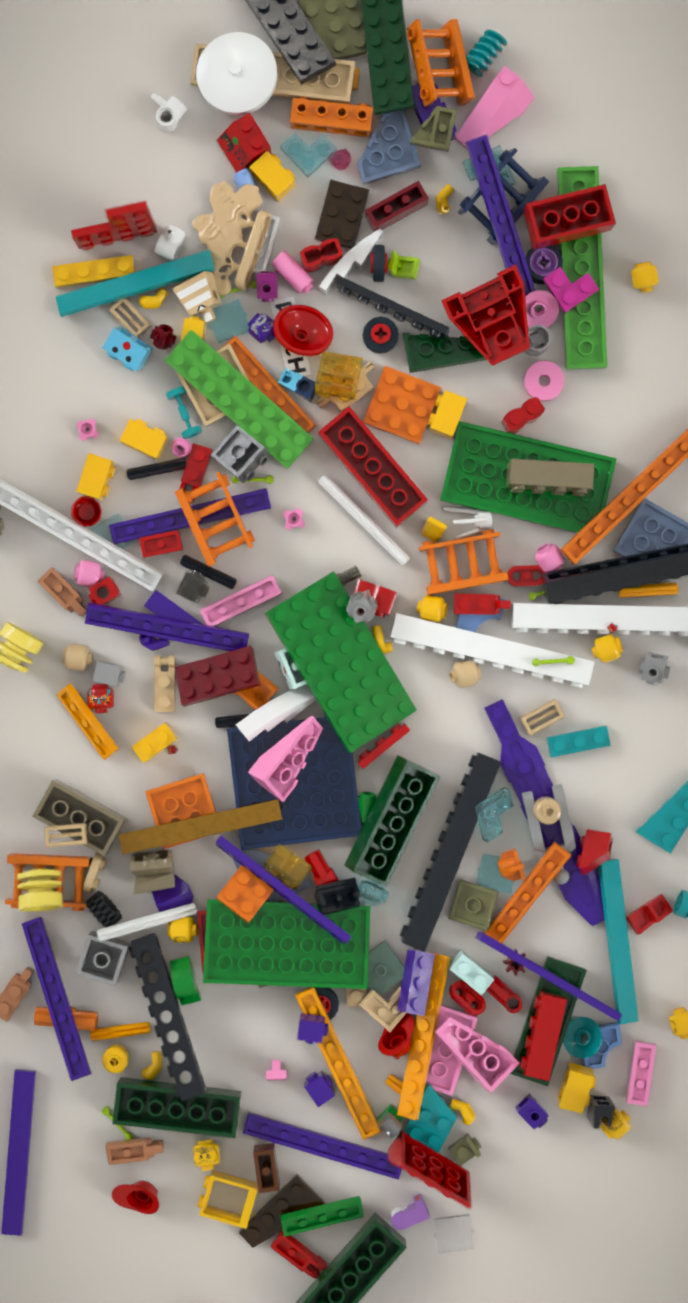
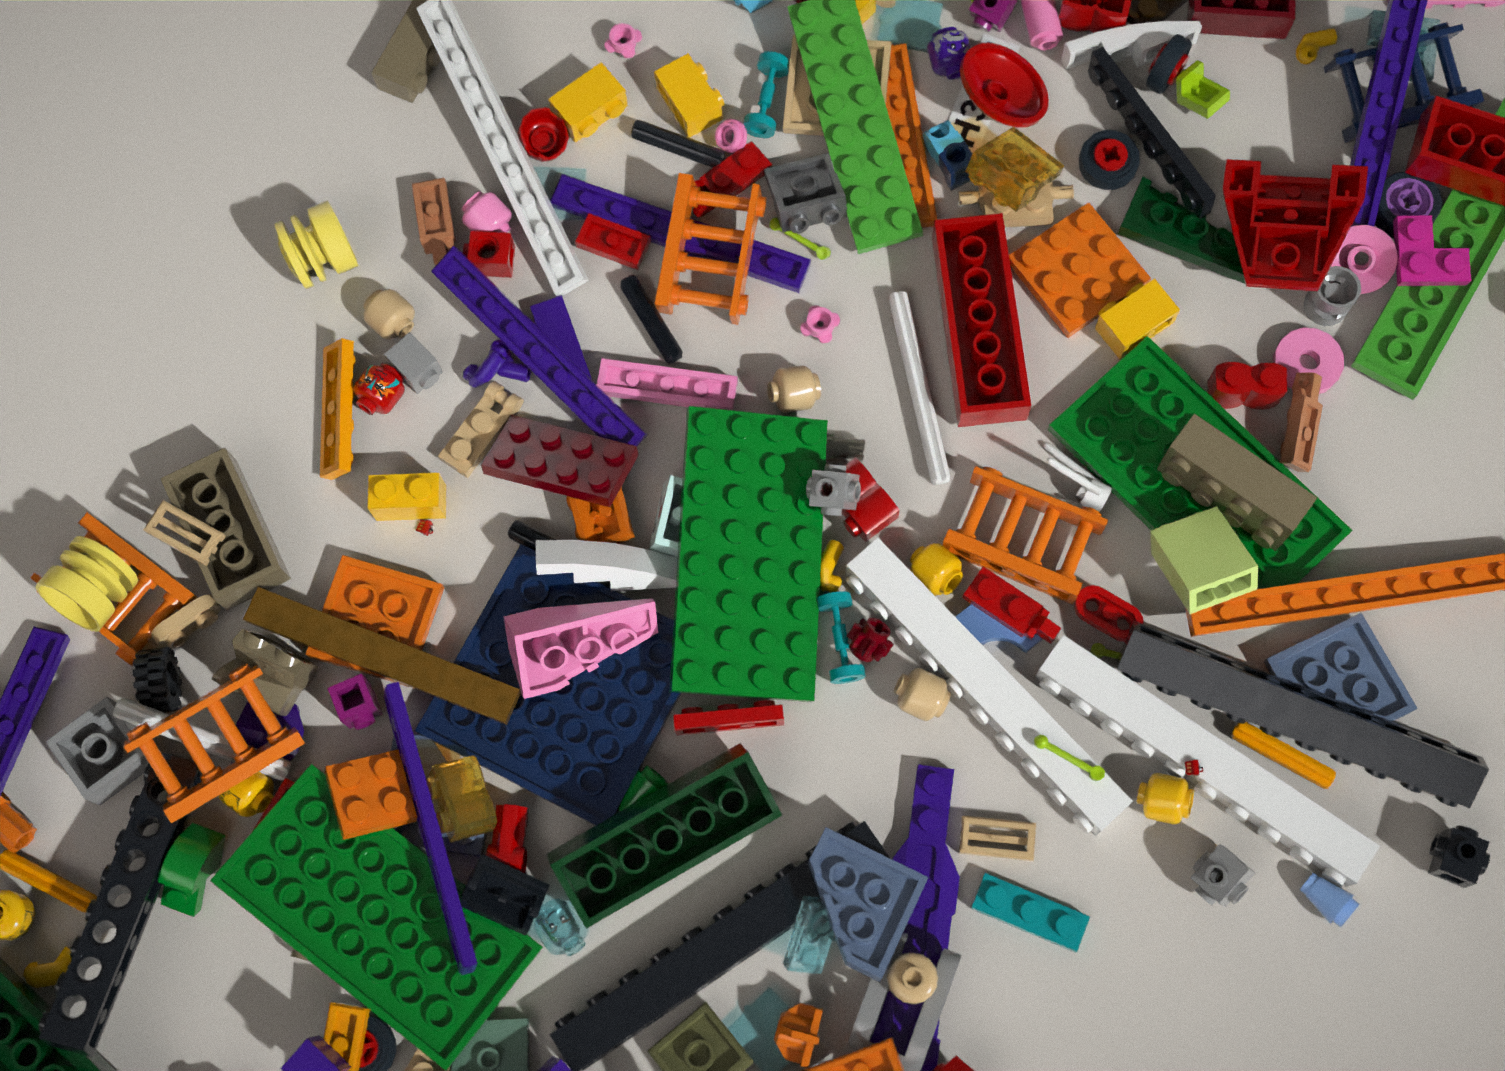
camera: 40 degrees right, 15 degrees down
(147, 654) = (486, 371): none -> dark purple arm
(169, 937) = (213, 778): none -> orange fence
(193, 586) = (614, 317): clear smoke brick -> none
(205, 856) = (355, 702): none -> magenta brick
(304, 562) = (794, 389): none -> tan head
(409, 672) = (833, 603): none -> teal wheel
(424, 664) = (870, 639): none -> dark red gear
(433, 529) = (1013, 454): yellow slope -> none
(504, 790) = (864, 900): none -> sand blue plate
(549, 557) = (1160, 608): bright pink head -> none
(557, 525) = (1204, 560): none -> yellowish green brick
(561, 418) = (1303, 423): none -> nougat hinge

